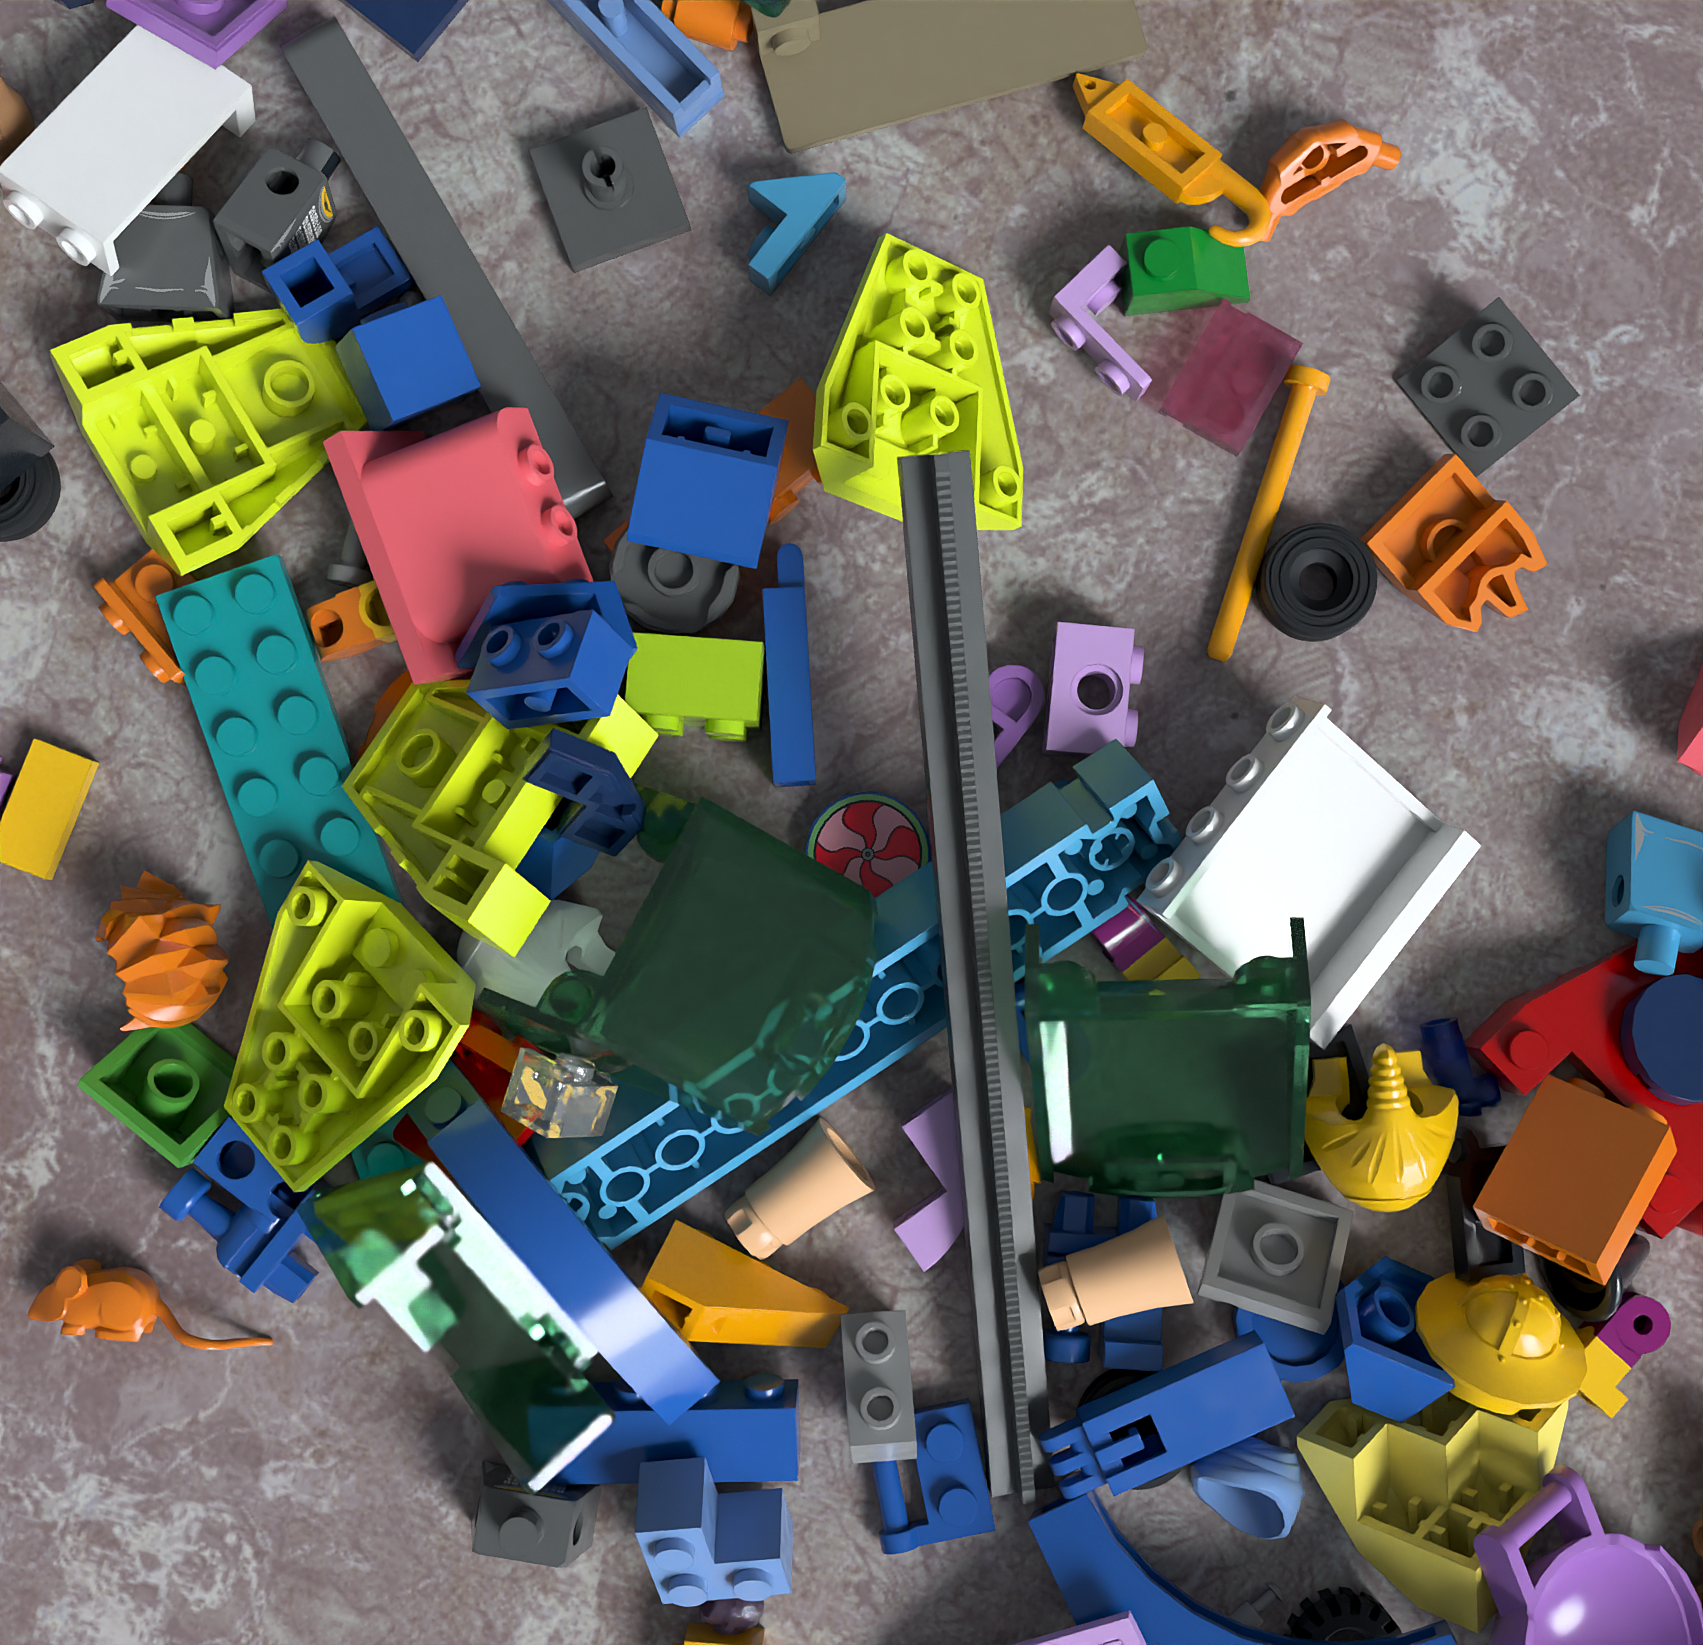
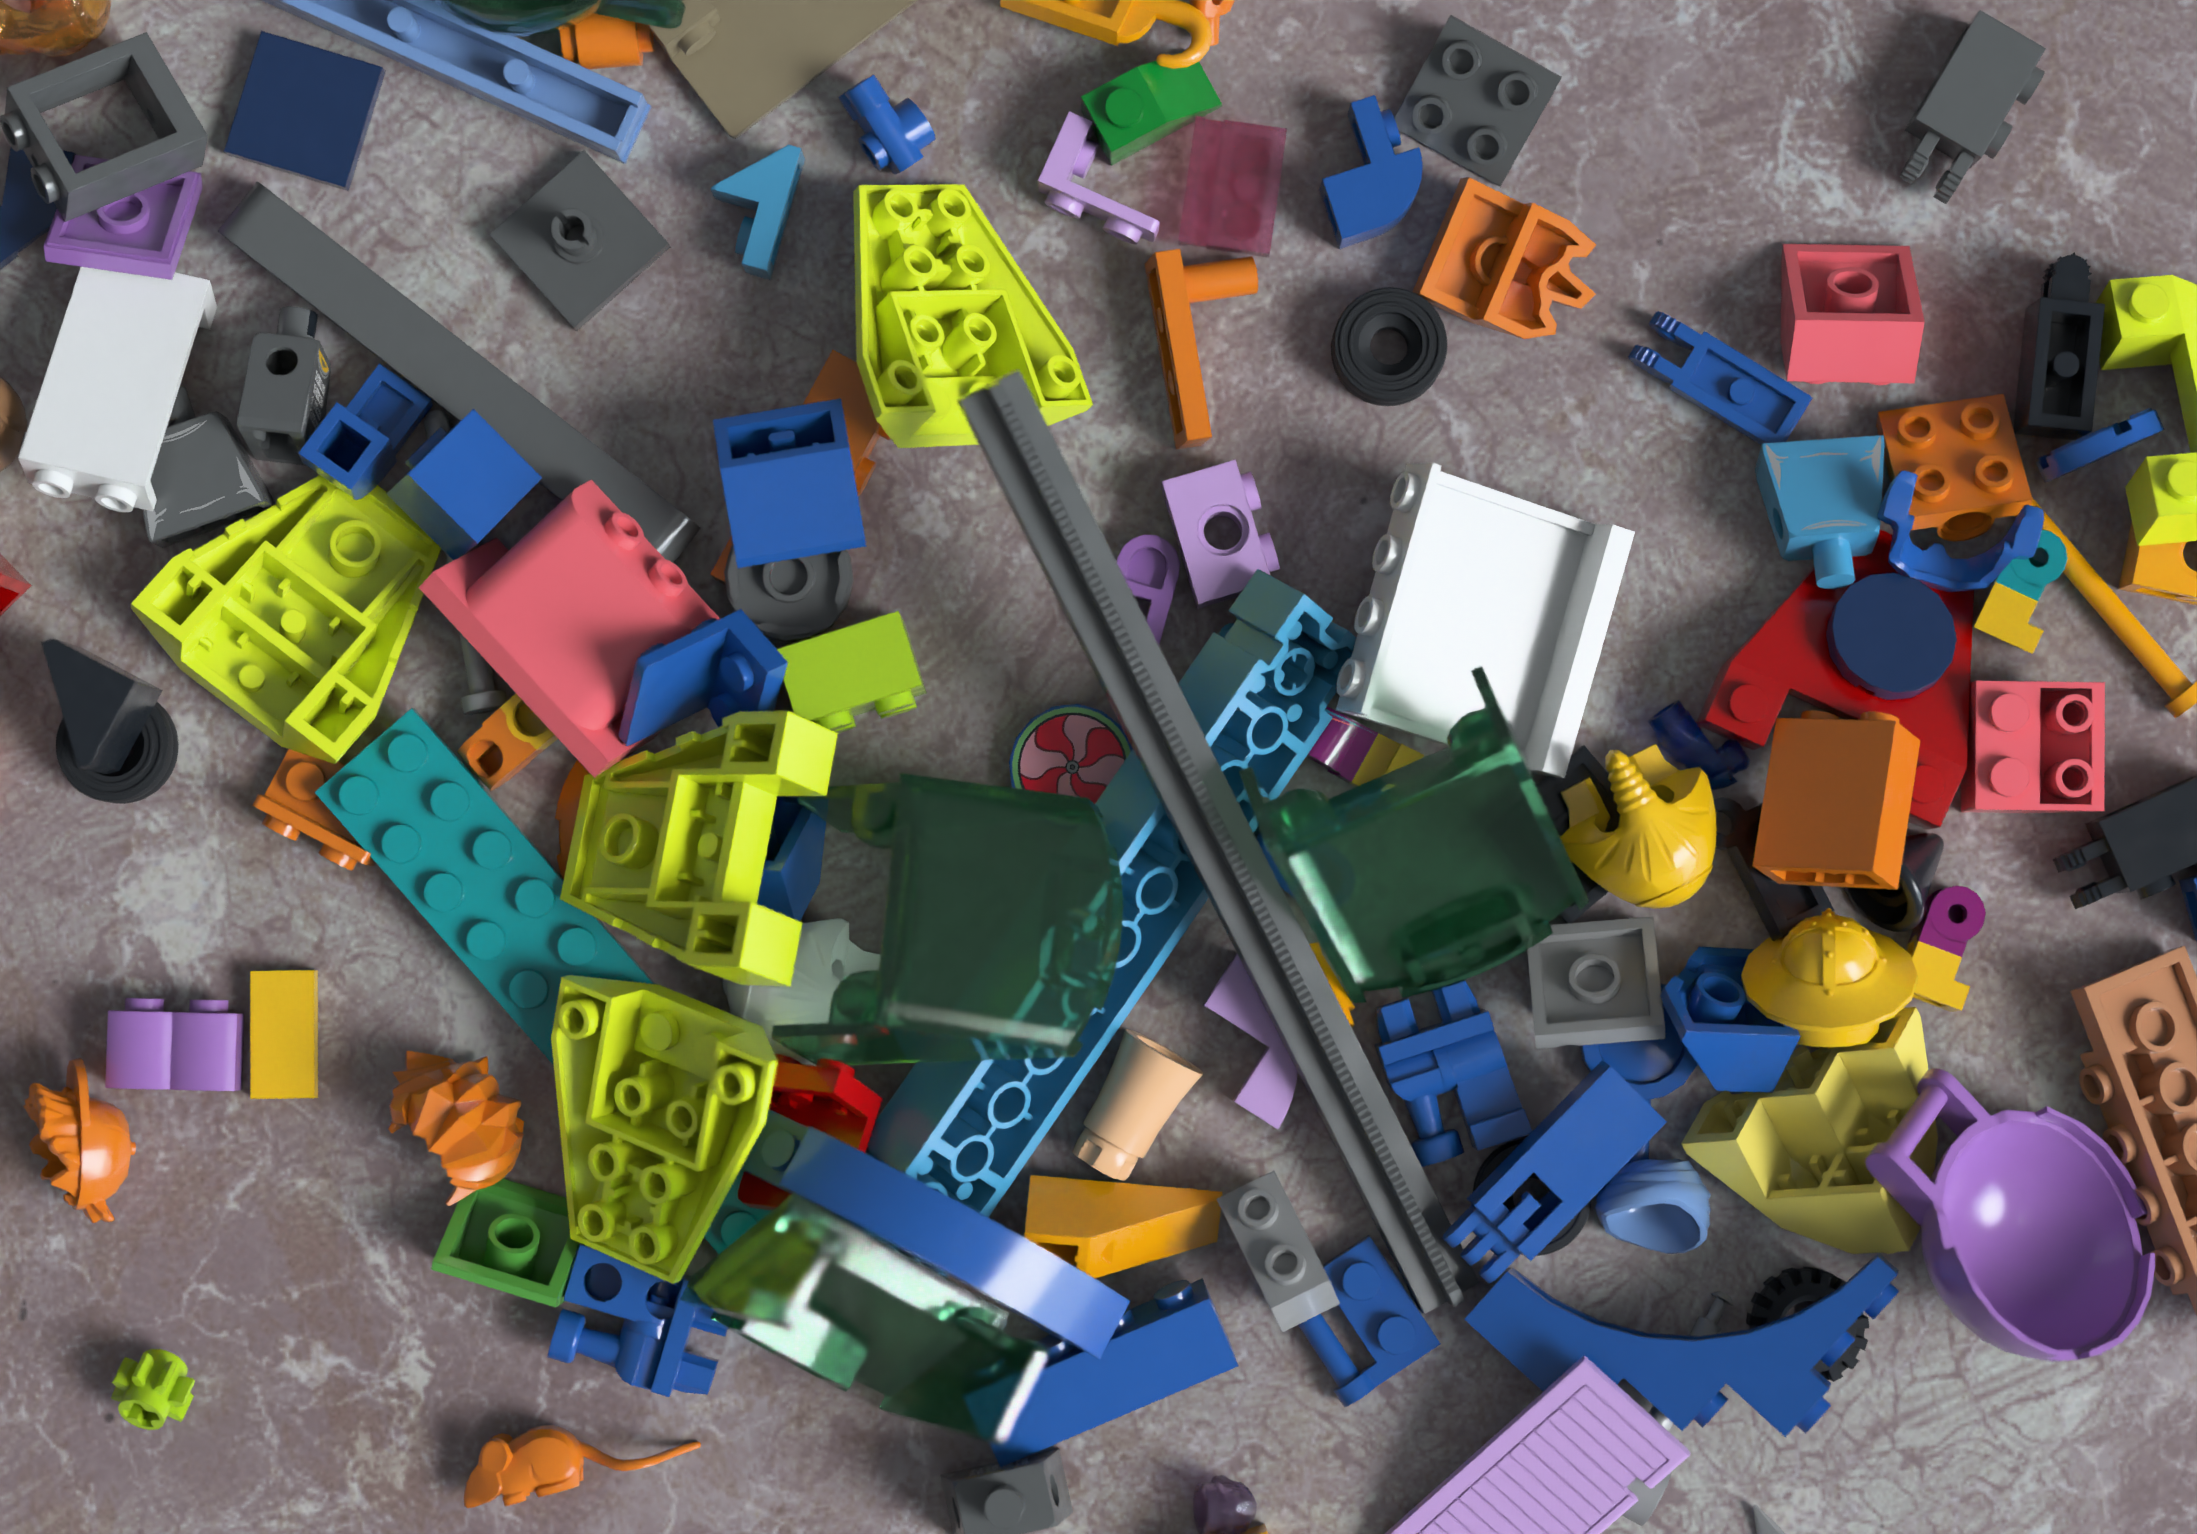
camera: 20 degrees left, 0 degrees up
(550, 670) = (718, 714): blue brick -> none
(559, 1095) = (880, 1094): clear brick -> none
(605, 801) = (813, 811): dark blue tile -> none
(711, 1542) = (1182, 1454): medium blue brick -> none
(789, 673) = (932, 628): blue hinge -> none
(934, 204) = (891, 133): none -> blue plate
(1116, 1278) = (1454, 1061): light nougat plant -> none
(1134, 453) = (1171, 292): none -> orange piece
(1304, 386) = (1306, 169): light orange bar -> none
(1364, 435) = (1380, 192): none -> blue brick
(1615, 739) = (1725, 383): none -> blue hinge

